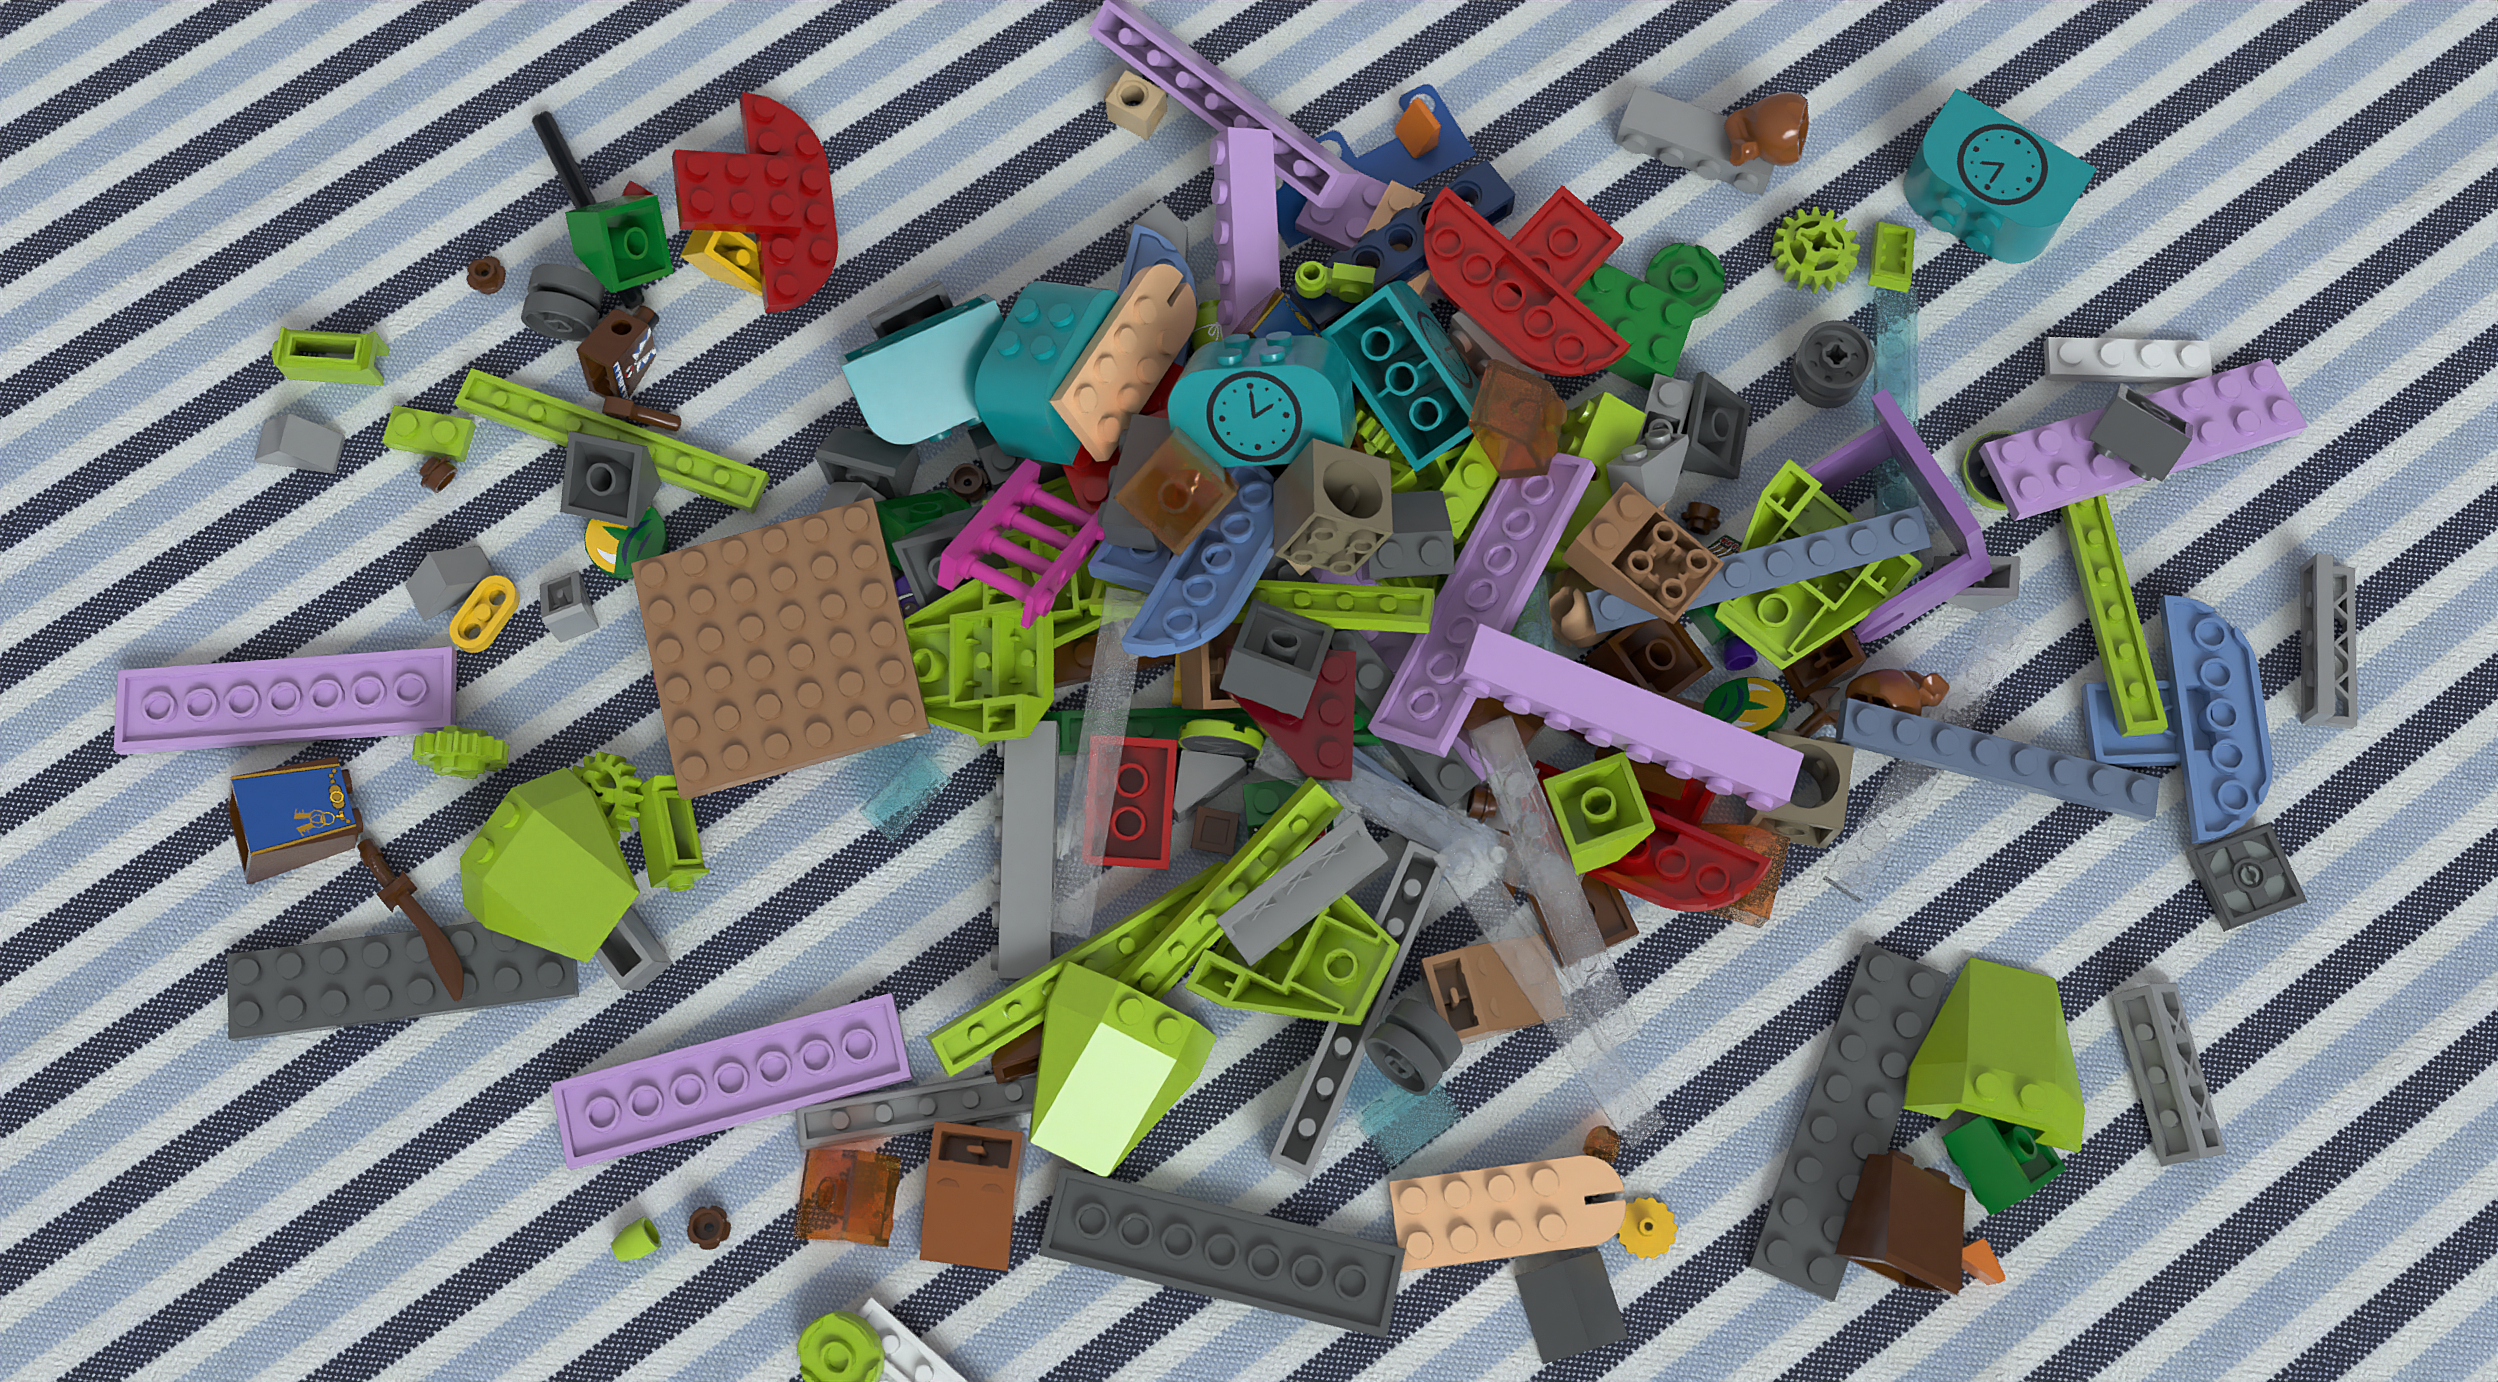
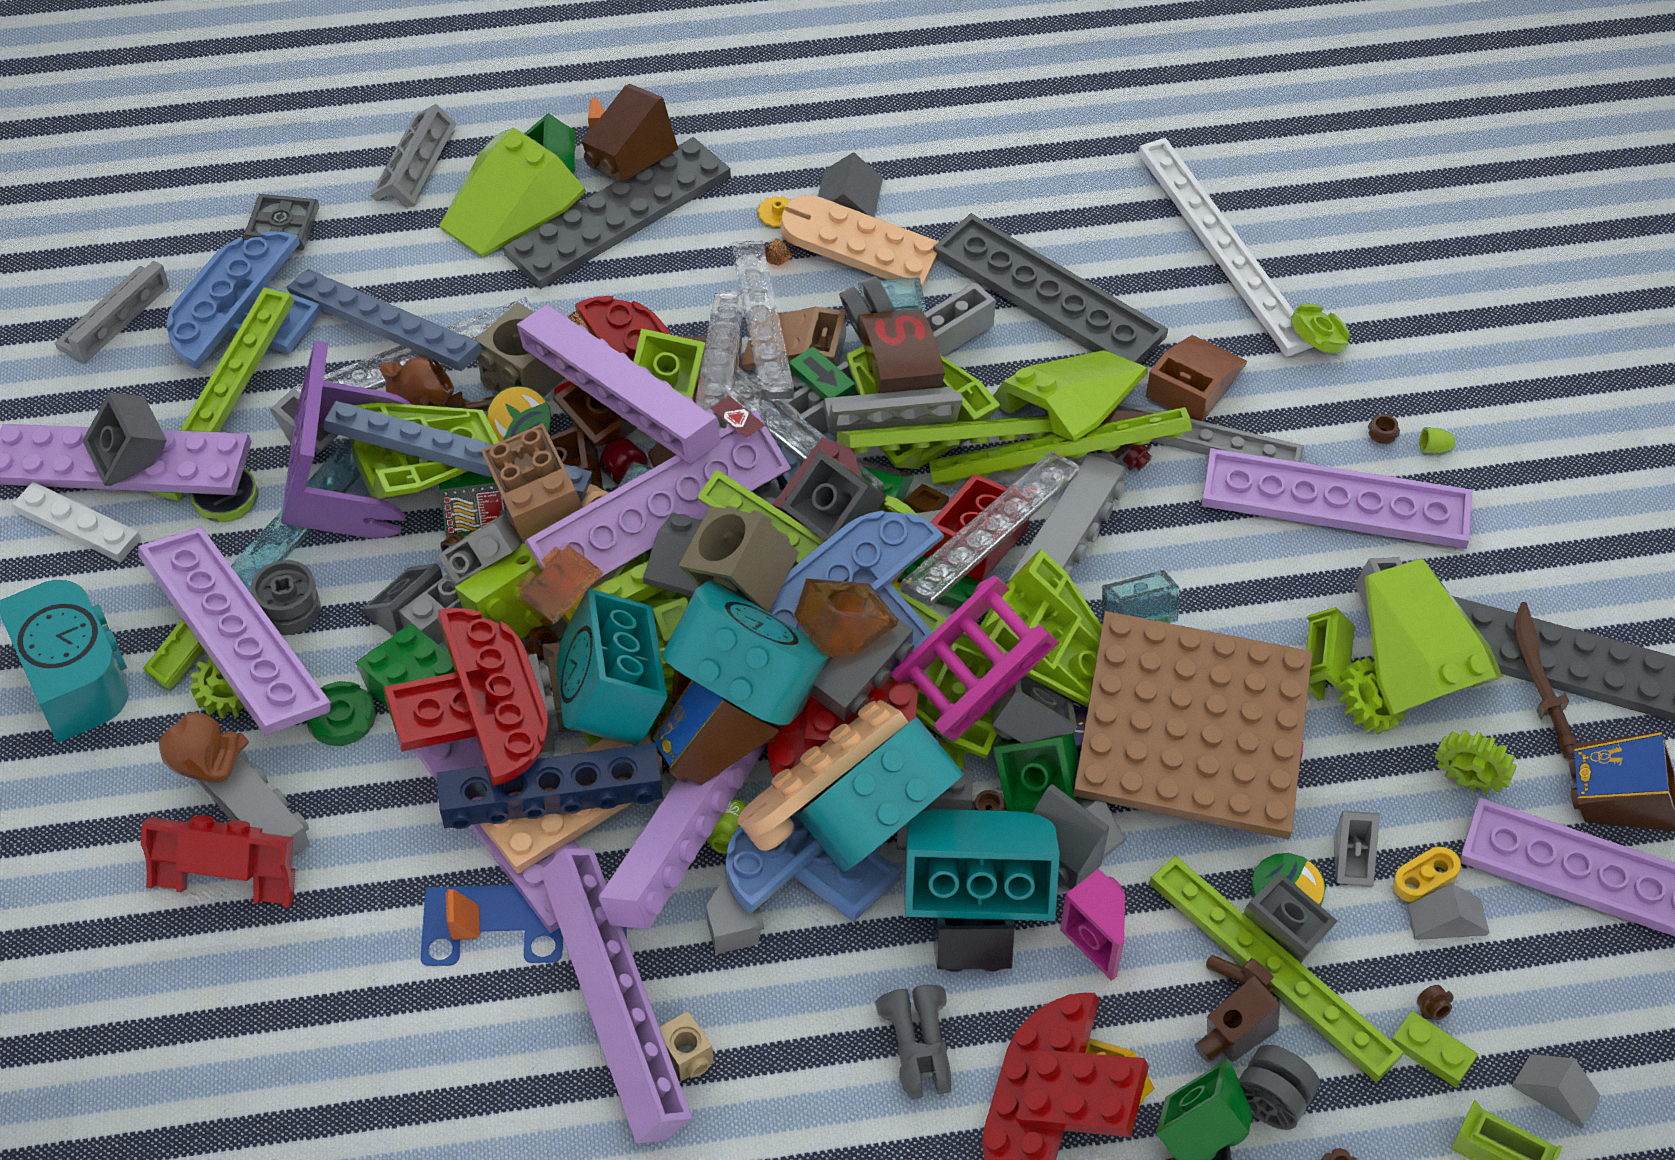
camera: 155 degrees left, 20 degrees down
(799, 384) = (1096, 920): none -> dark pink slope
(847, 1197) = (1282, 403): clear orange slope -> none
(930, 244) = (915, 1056): none -> dark grey piece
(1333, 973) = (901, 350): none -> reddish brown slope
(1346, 281) = (617, 749): lime plate -> none
(1416, 912) = (821, 375): none -> green tile
(1454, 728) = (738, 417): none -> dark red sticker
(1675, 56) = (221, 851): none -> red bracket
(1849, 279) = (234, 630): none -> lavender plate

